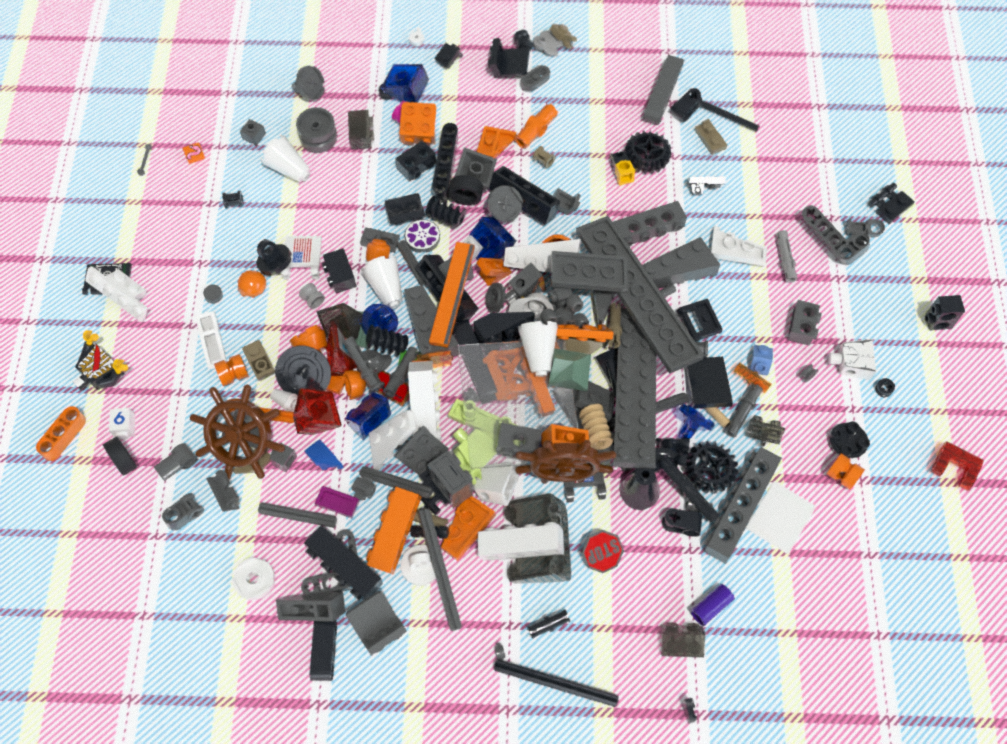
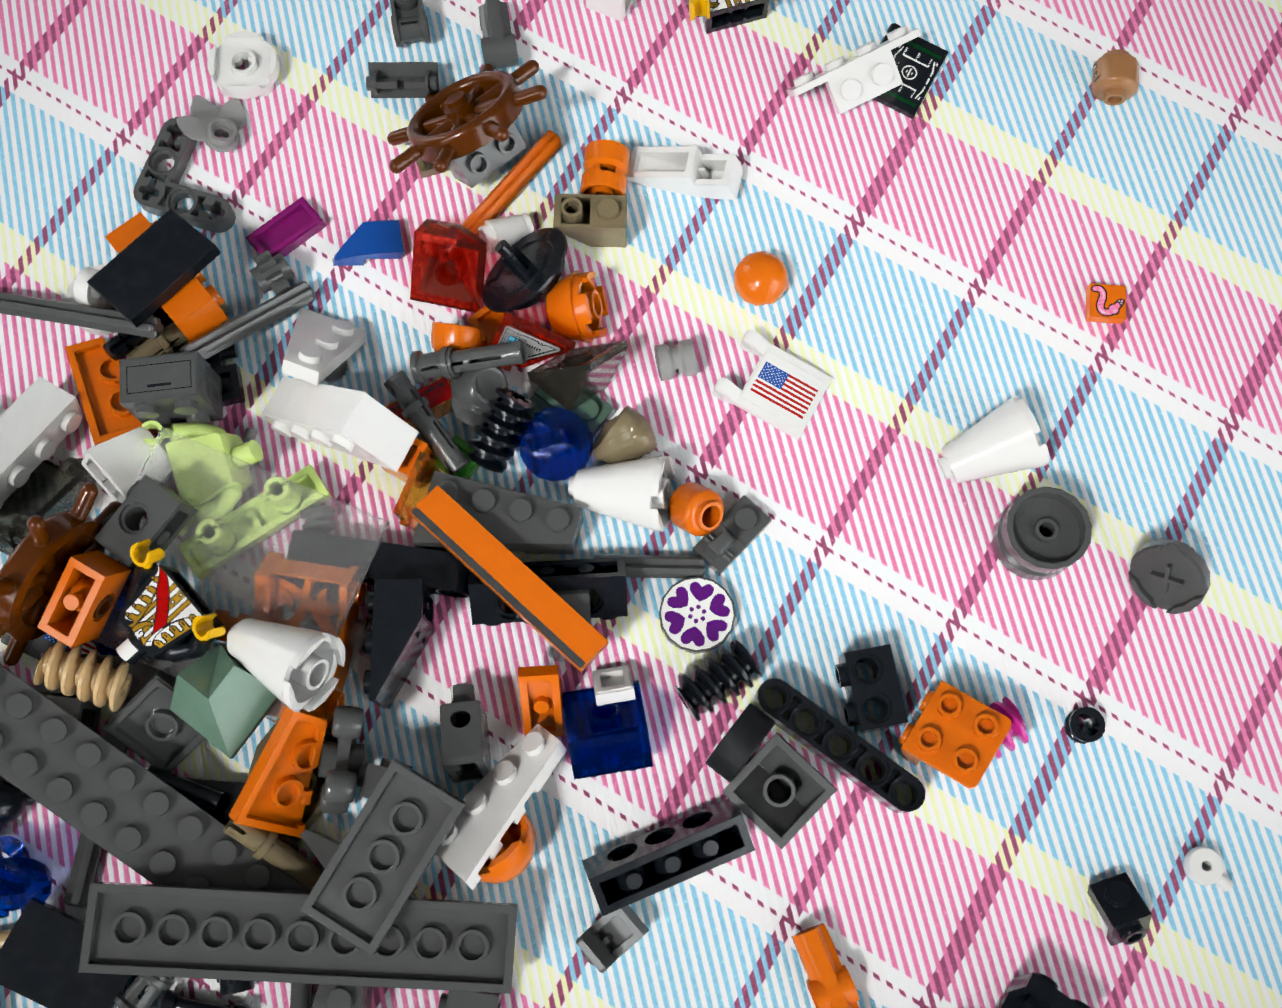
camera: 120 degrees right, 10 degrees up
(72, 191) = (1115, 76): none -> medium nougat head
(141, 172) = (1108, 203): hinge -> none
(213, 294) = (777, 212): dark grey tile -> none
(237, 199) = (959, 322): black bush -> none
(252, 132) = (1101, 422): dark grey plate -> none
(273, 258) = (787, 329): black tile -> none
(284, 459) = (406, 186): dark grey plate -> none
(294, 572) = (210, 121): none -> light grey plate
(297, 514) = (301, 167): dark grey axle -> none
(311, 607) = (136, 121): dark grey slope -> none
(323, 650) = (75, 107): black beam -> none
(339, 270) = (700, 427): black brick -> none
(343, 563) = (165, 180): black brick -> none
(360, 129) = (1003, 619): clear smoke brick -> none
(361, 294) = (624, 438): none -> dark tan hair
(368, 415) = (386, 332): clear blue slope -> none
(375, 622) = (44, 190): dark grey bracket -> none
(394, 526) = (154, 267): none -> black tile
(404, 208) = (766, 608): black bracket -> none
(406, 82) = (1081, 771): clear blue slope -> none
(421, 450) = (263, 376): dark grey hinge -> none
(495, 141) = (838, 874): orange wing -> none
(495, 297) = (489, 669): dark grey gear -> none
(504, 203) = (659, 796): dark grey tile -> none
(533, 302) = (419, 730): white piece -> none
(544, 157) = (744, 958): dark tan bush -> none
(552, 404) = (164, 613): none -> torso

